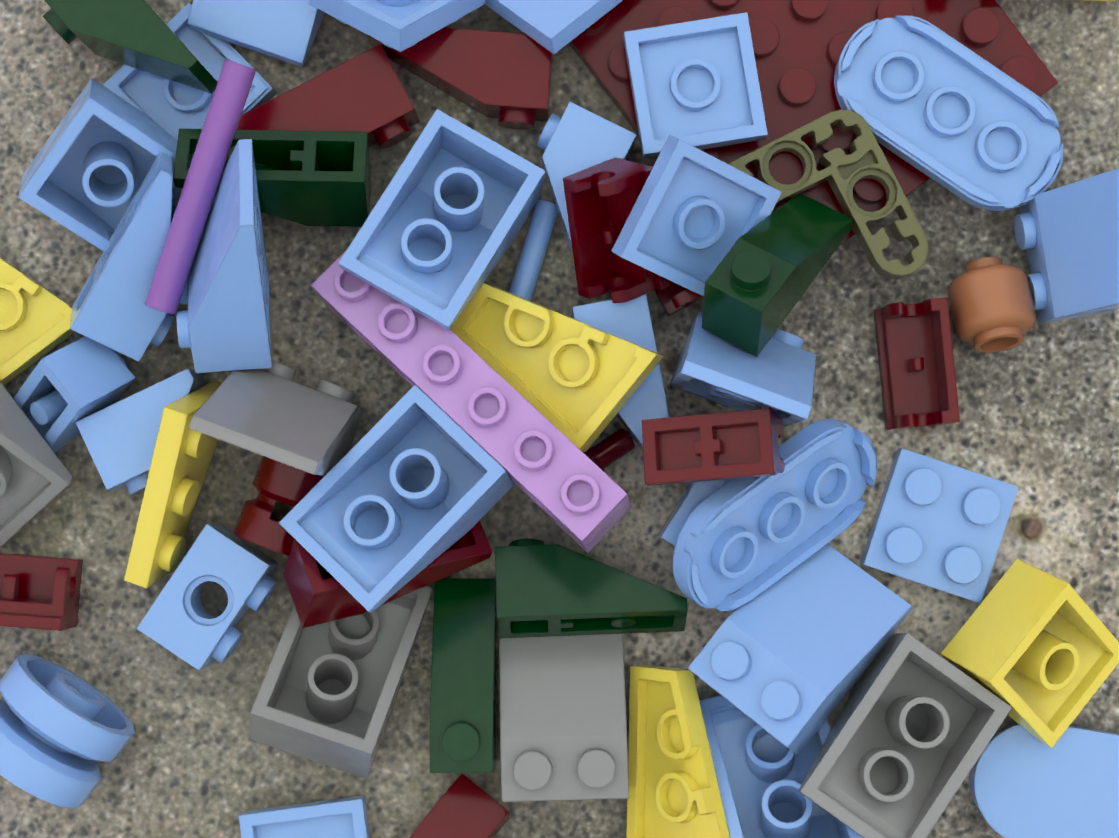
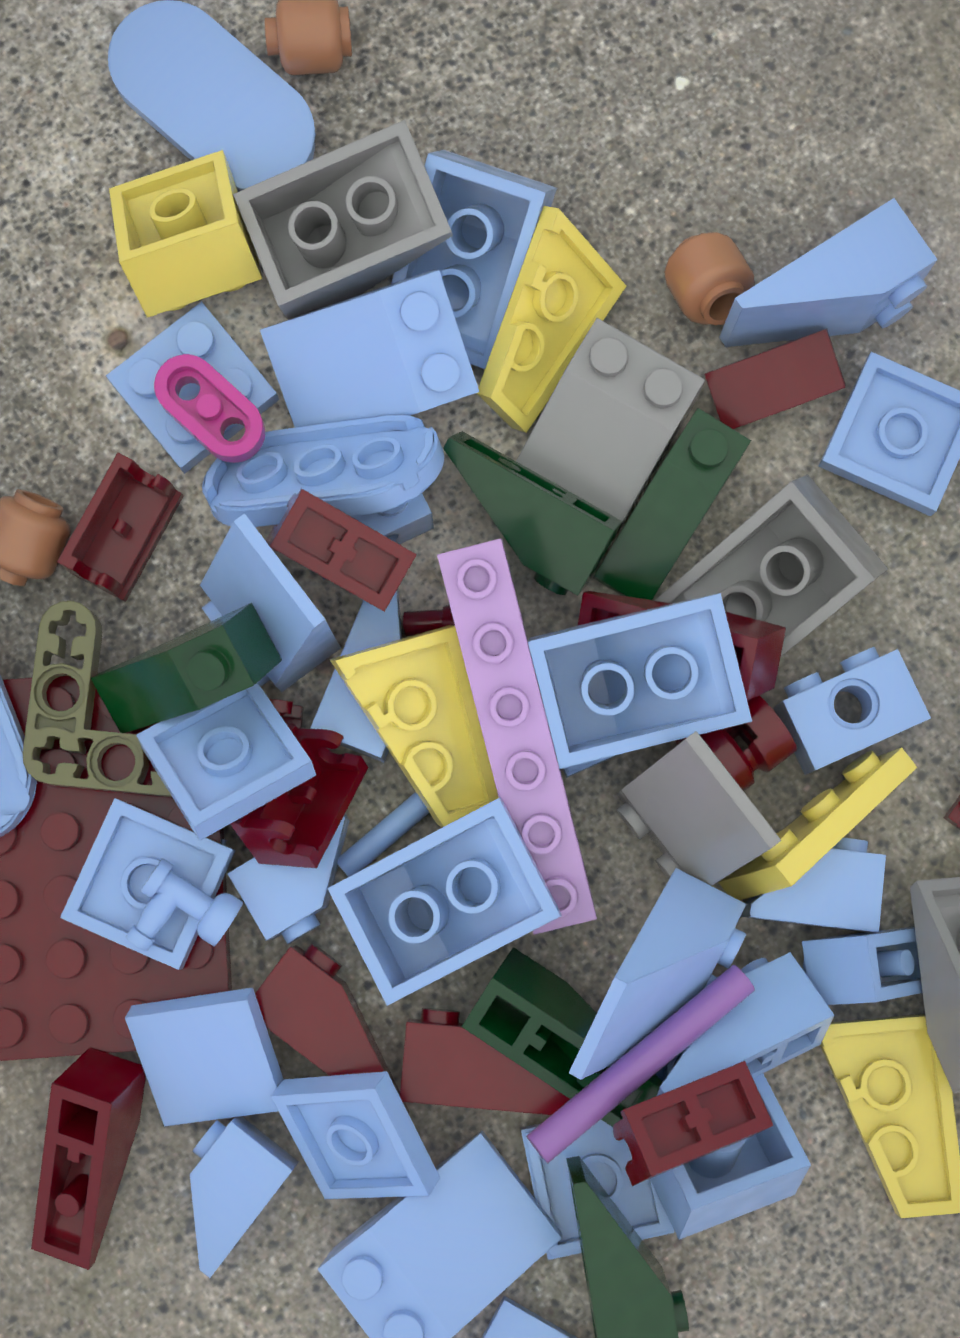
camera: 150 degrees left, 5 degrees down
(127, 162) = (691, 1122): none -> dark red hinge
(670, 86) = (171, 891): none -> light blue piece
(906, 509) = (211, 410): none -> dark pink plate

